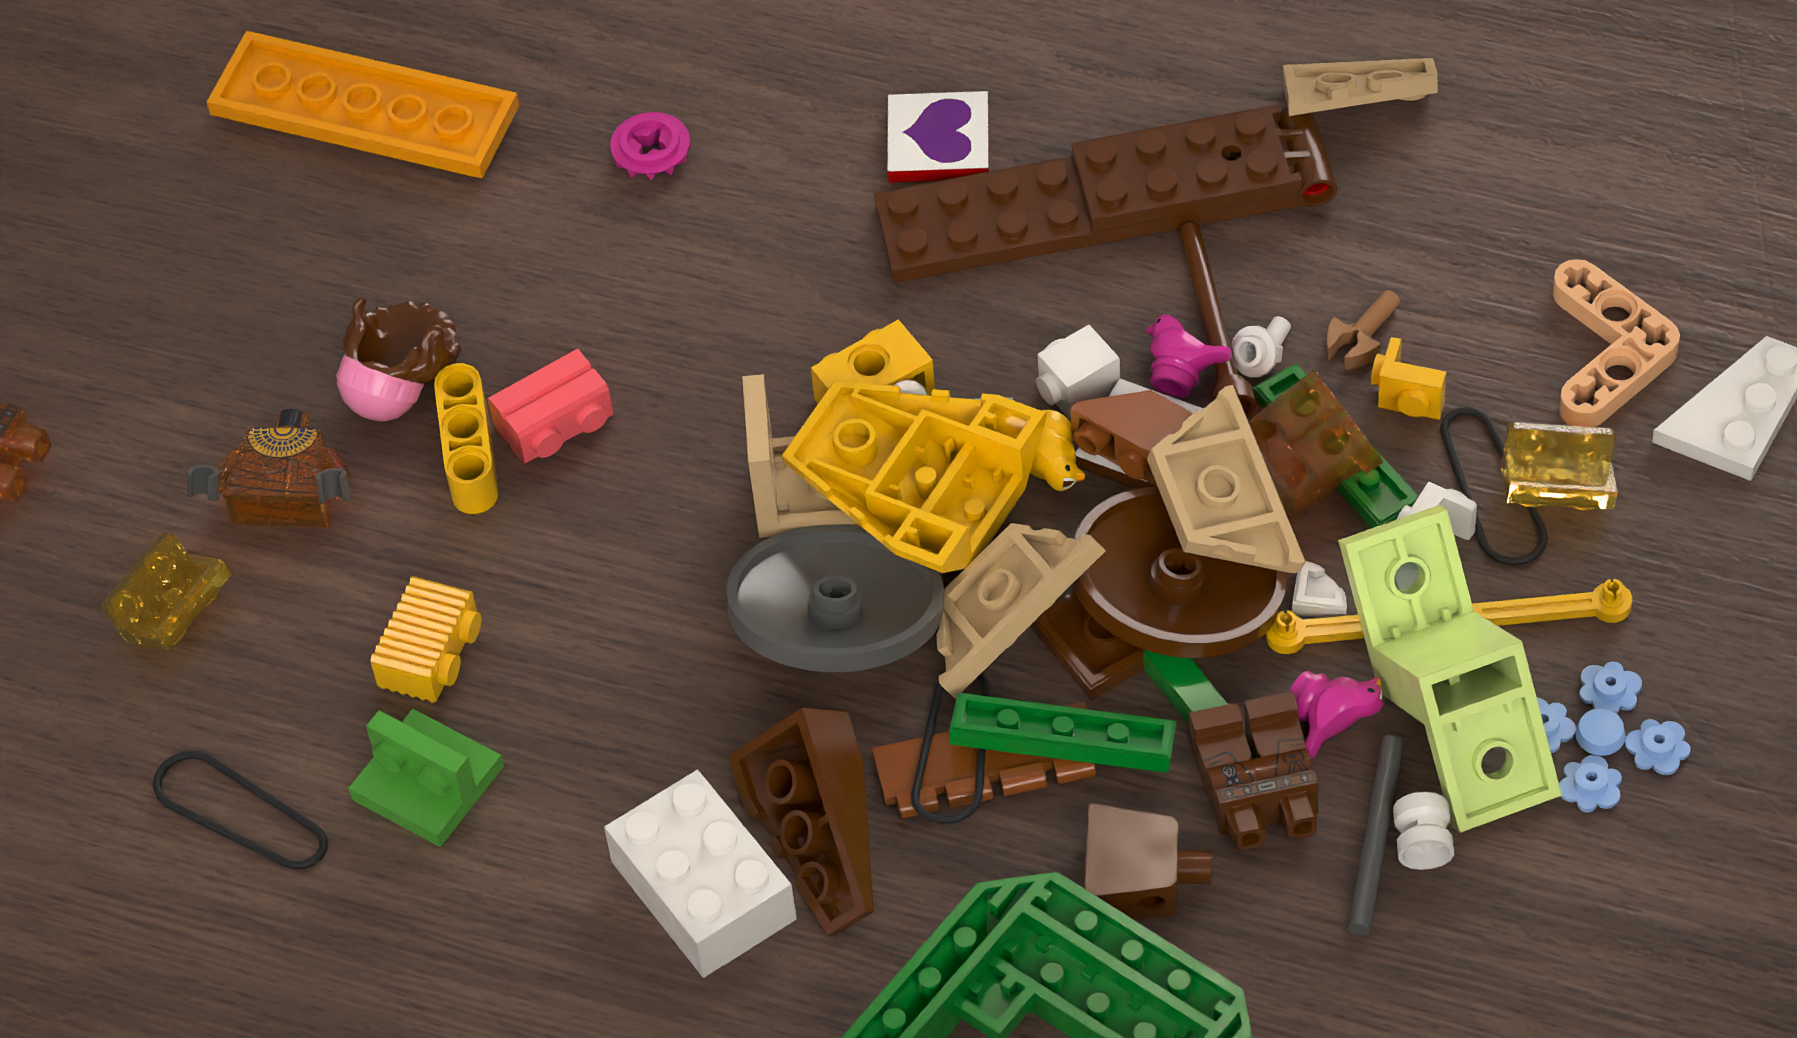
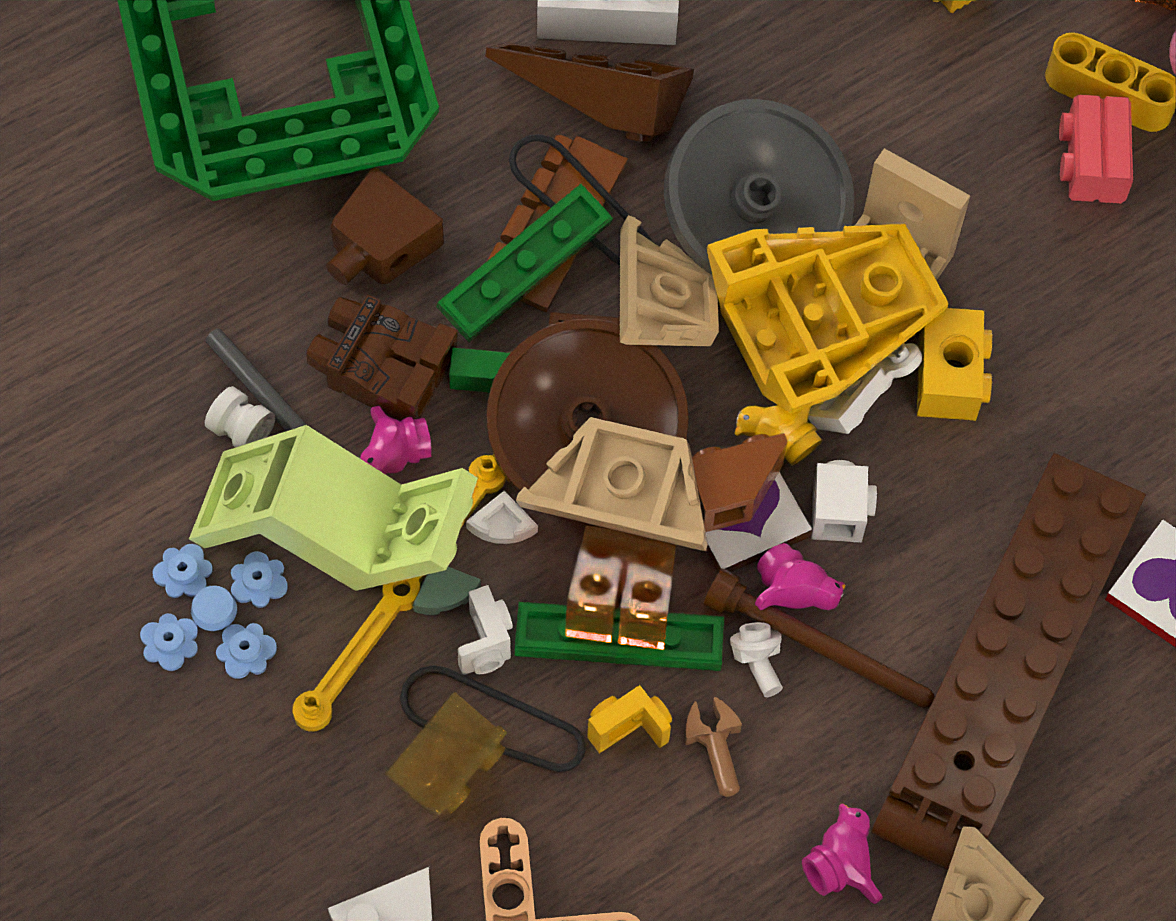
camera: 120 degrees right, 10 degrees up
(1375, 192) = (843, 857): none -> dark pink animal

